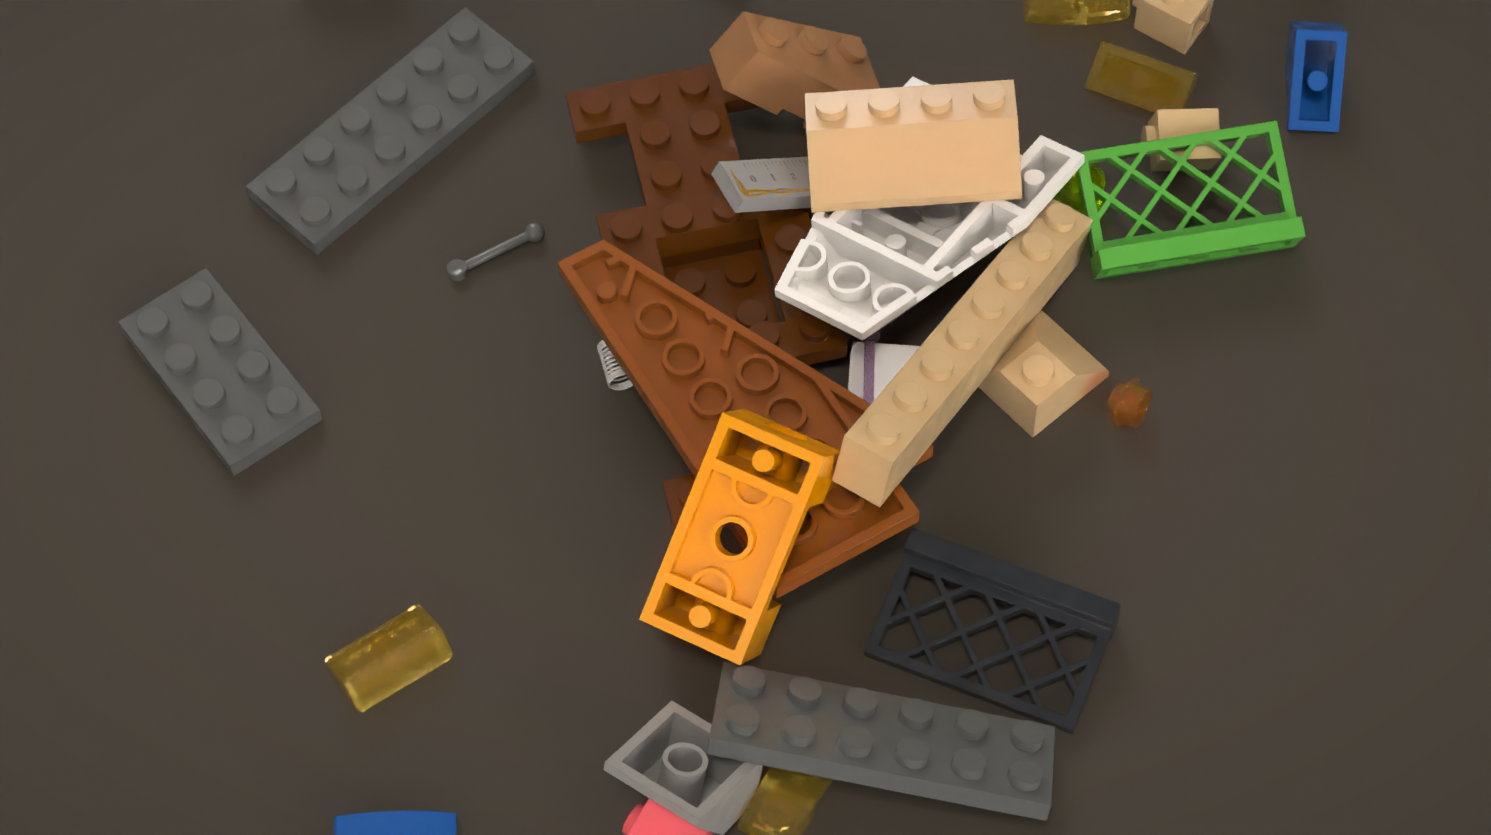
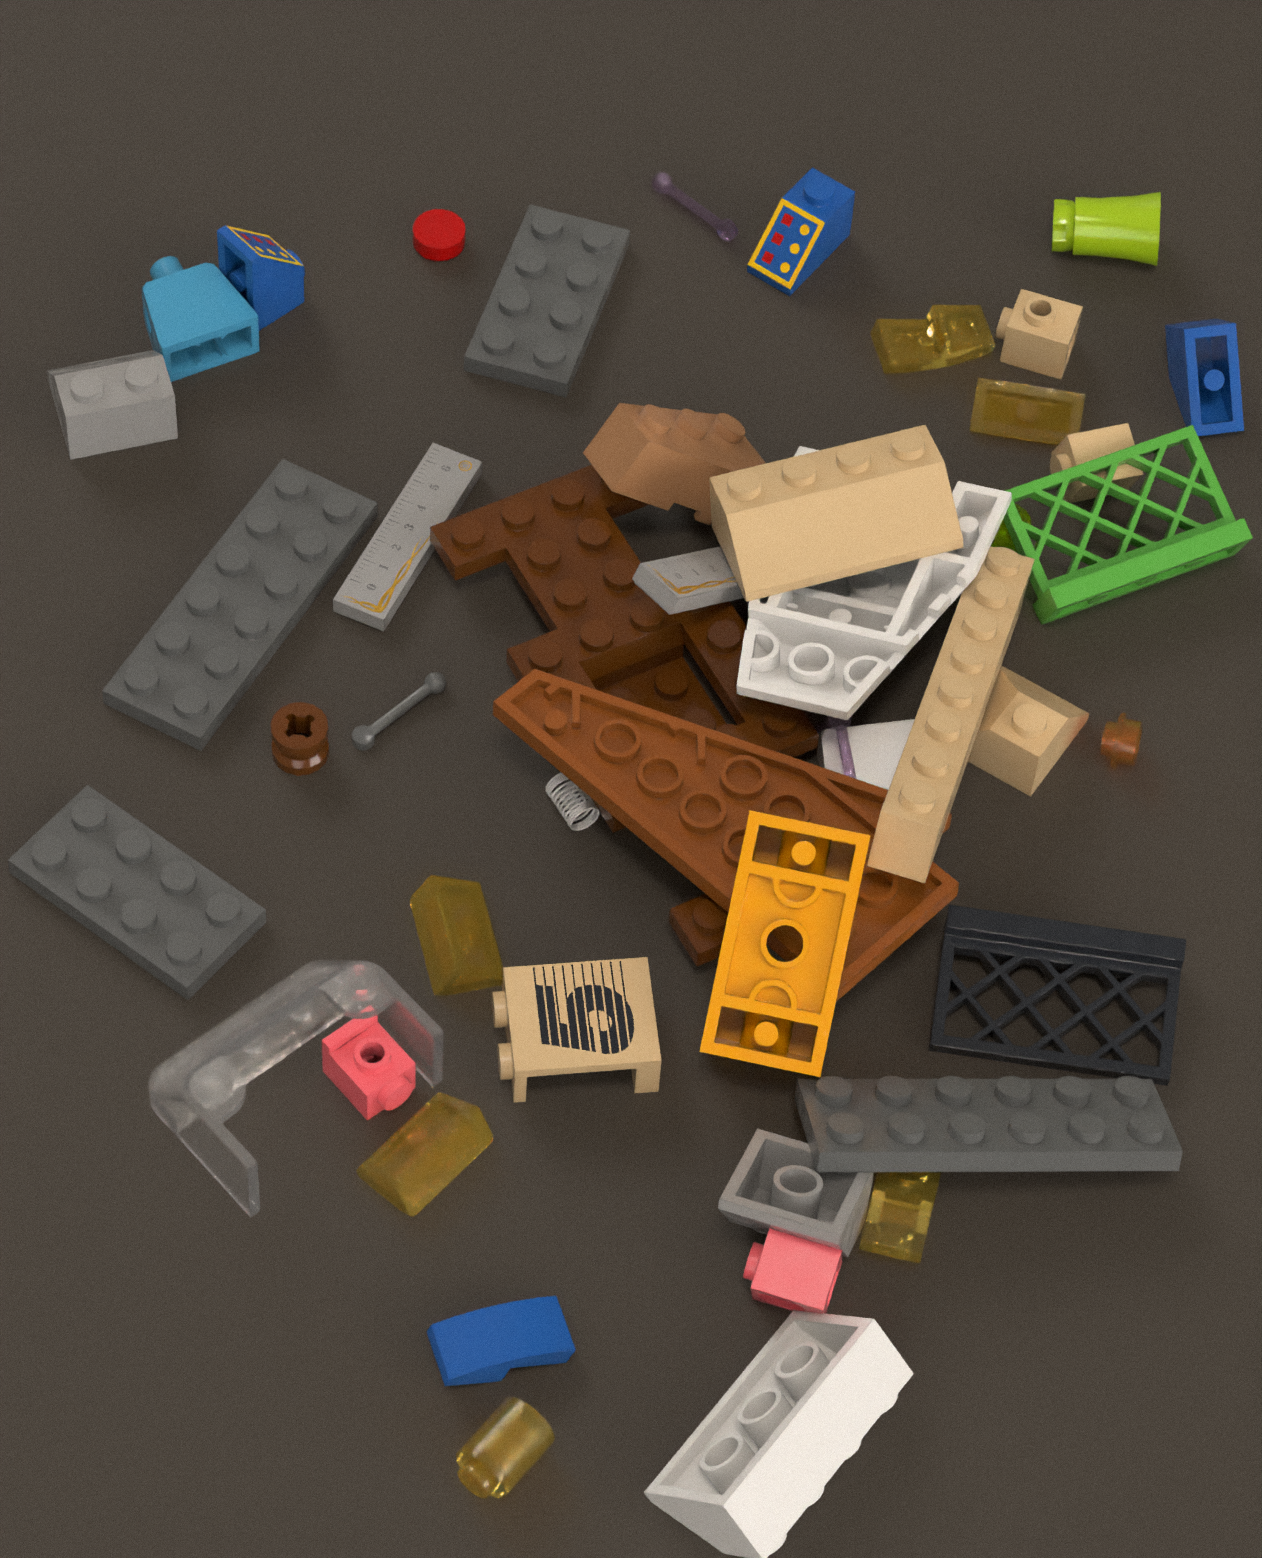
camera: 20 degrees left, 5 degrees down
(215, 549) = (208, 1077): none -> clear windscreen
(360, 568) = (350, 1064): none -> coral brick
(395, 274) = (295, 752): none -> reddish brown wheel
(479, 465) = (456, 935): none -> clear yellow slope
(542, 103) = (403, 539): none -> light grey tile
(552, 567) = (577, 1022): none -> tan panel

